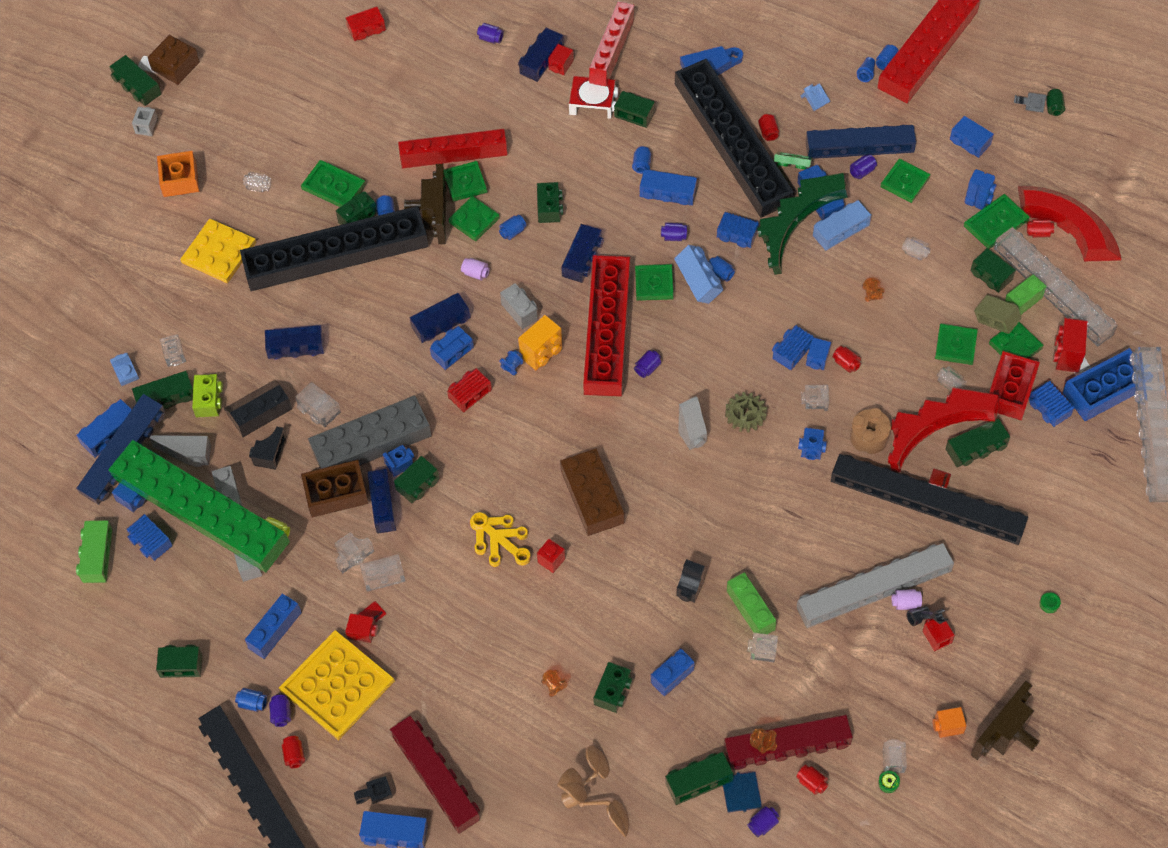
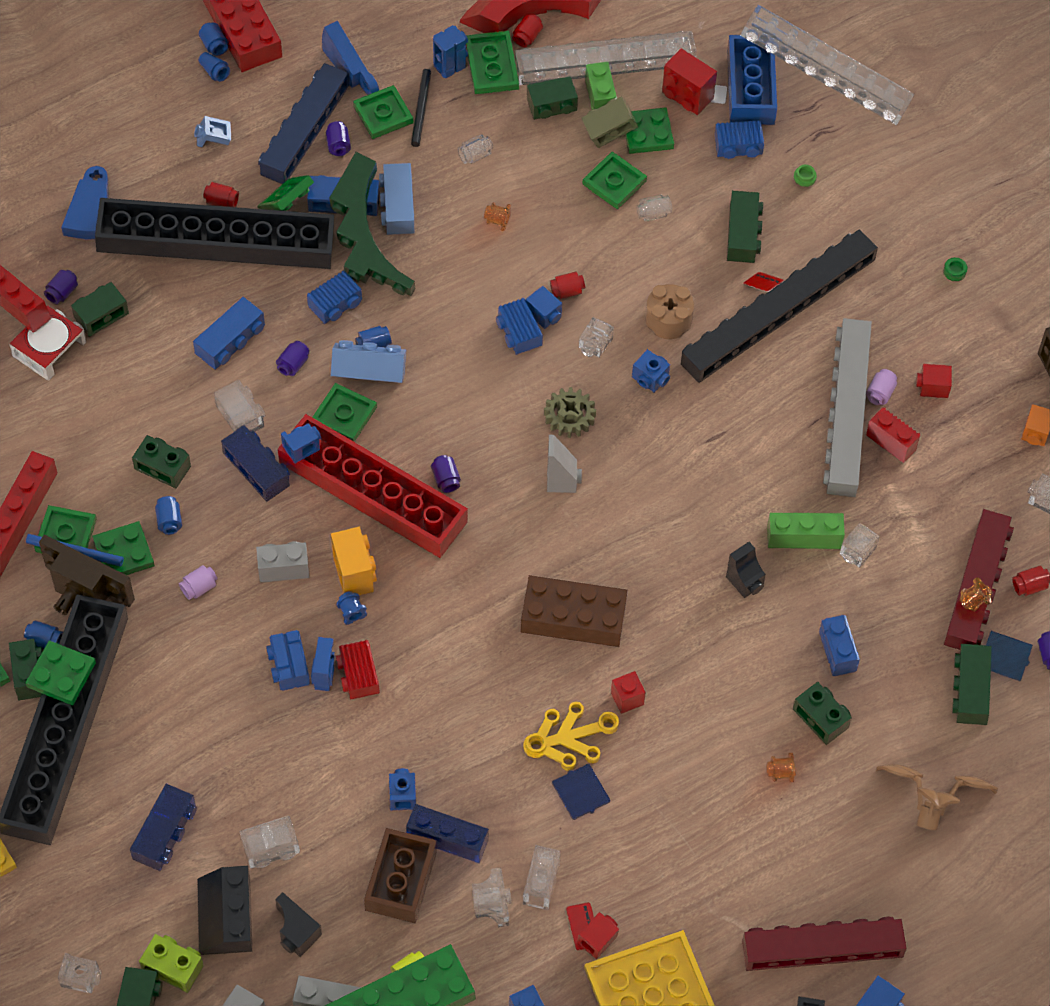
camera: 65 degrees left, 0 degrees up
(357, 226) = (60, 672): none -> green plate
(371, 434) = (353, 806): dark grey brick -> none
(416, 480) = (445, 782): dark green brick -> none
(440, 318) = (241, 652): clear blue brick -> none
(452, 189) = (97, 555): none -> blue piece
(457, 365) = (323, 664): none -> blue brick
(463, 567) = (581, 791): none -> clear blue piece
(602, 263) = (301, 442): none -> blue brick
(616, 222) = (238, 407): none -> clear brick
(638, 81) = (61, 286): none -> dark purple brick
(641, 159) = (172, 339): blue brick -> none
(870, 625) = (893, 434): none -> red brick
(916, 616) = (904, 390): black brick -> none
(928, 135) = (344, 57): none -> blue piece
(929, 200) = (421, 106): none -> black bar
(933, 416) = (697, 215): red arch -> none
(971, 136) = (372, 23): blue brick -> none
(1014, 384) = (700, 158): red brick -> none
(1054, 462) = (805, 175): none -> bright green plate

